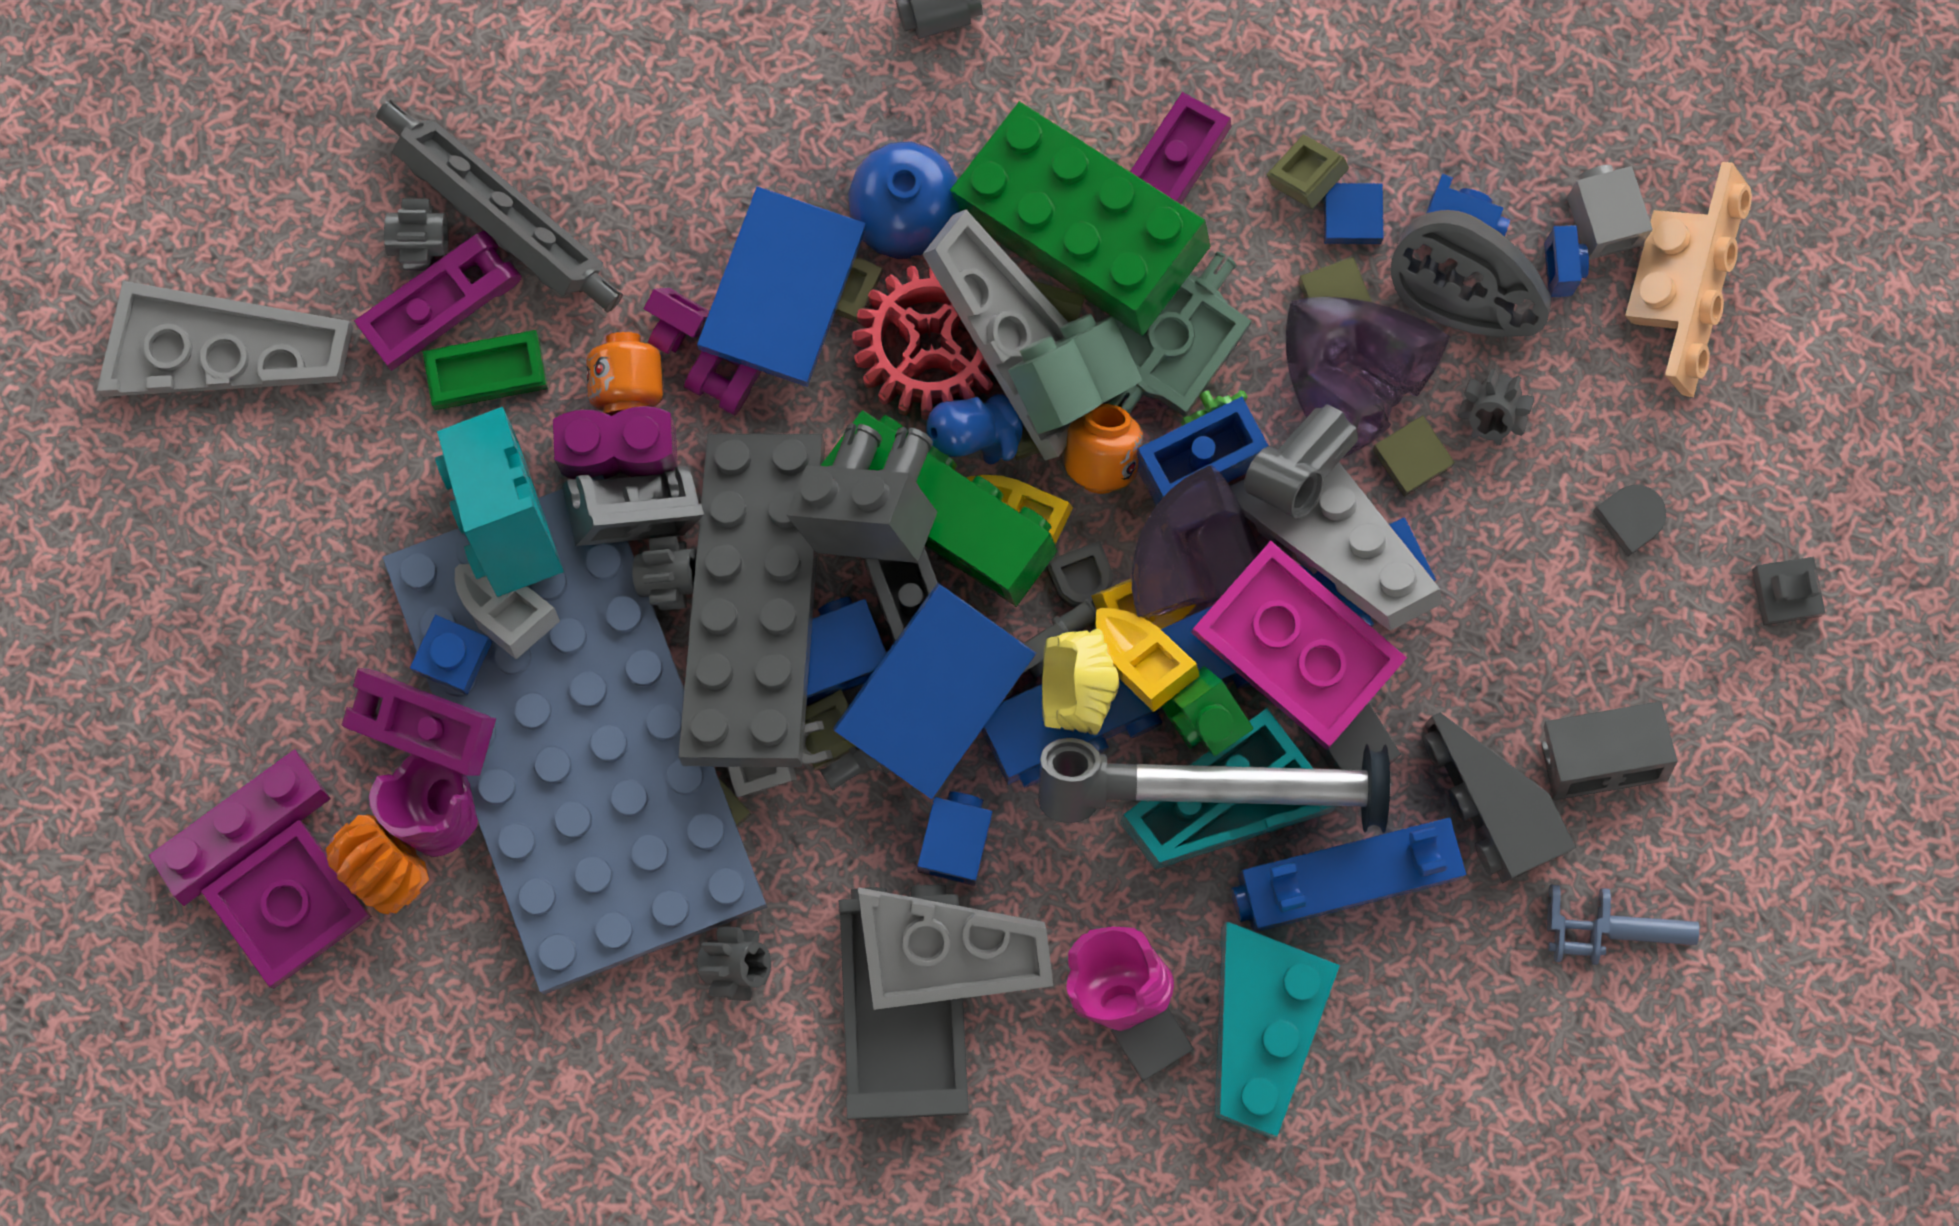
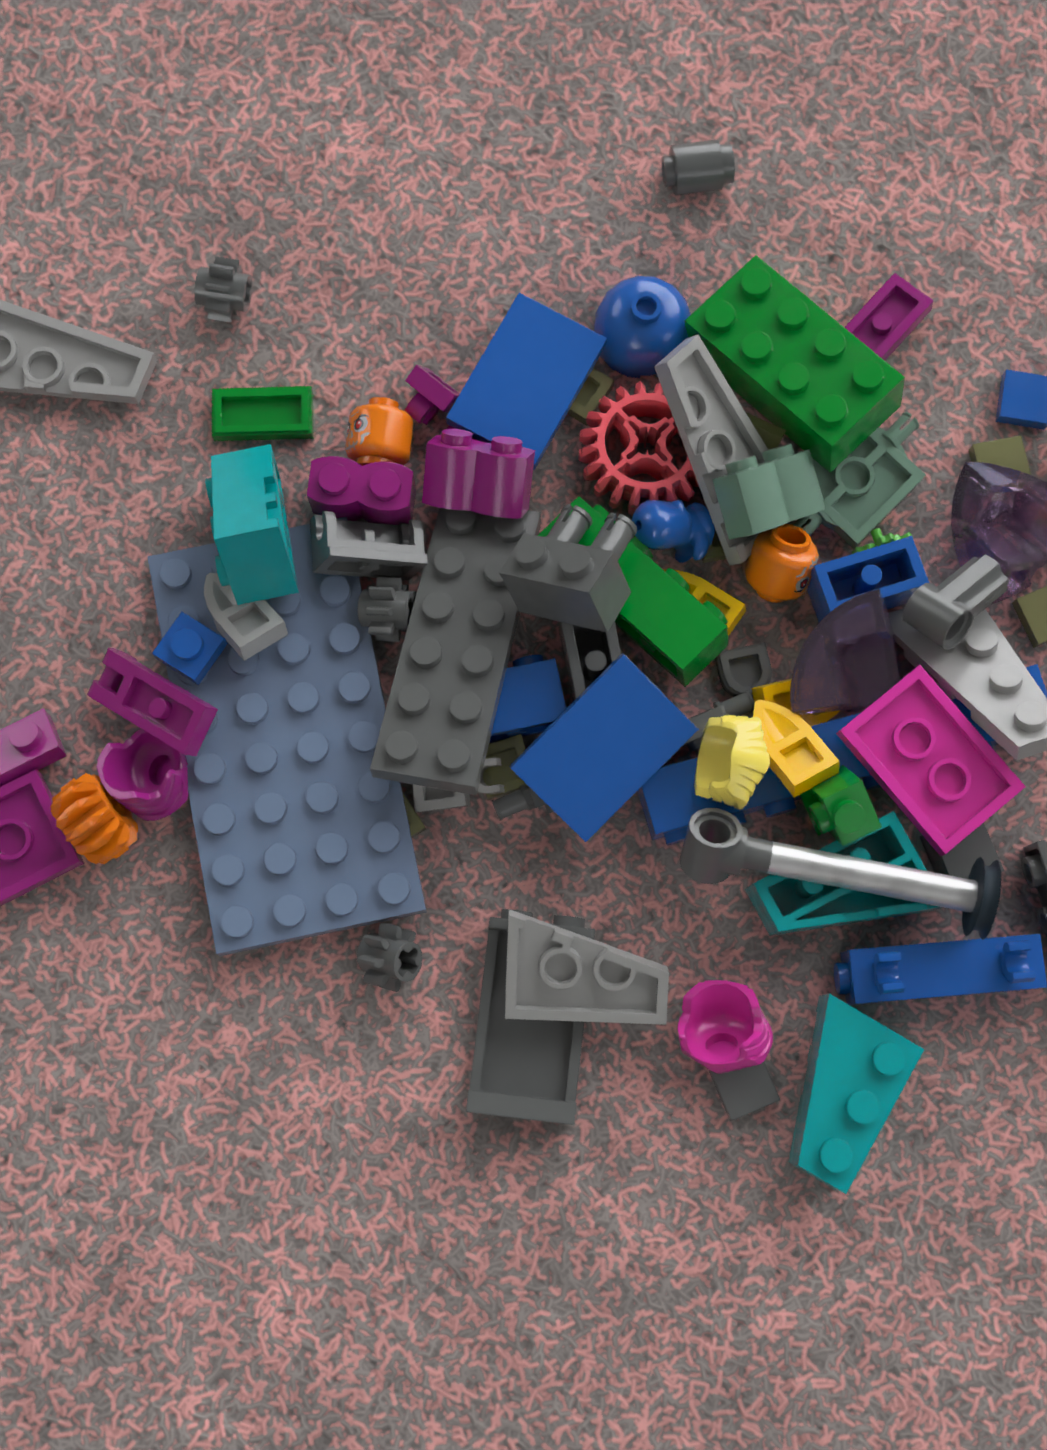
camera: 10 degrees right, 0 degrees up
(436, 300) = (231, 348): magenta plate -> none
(497, 207) = (296, 278): dark grey plate -> none
(744, 404) = (478, 474): none -> magenta brick
(955, 838) = (600, 879): blue brick -> none
(1307, 171) = (992, 357): olive tile -> none

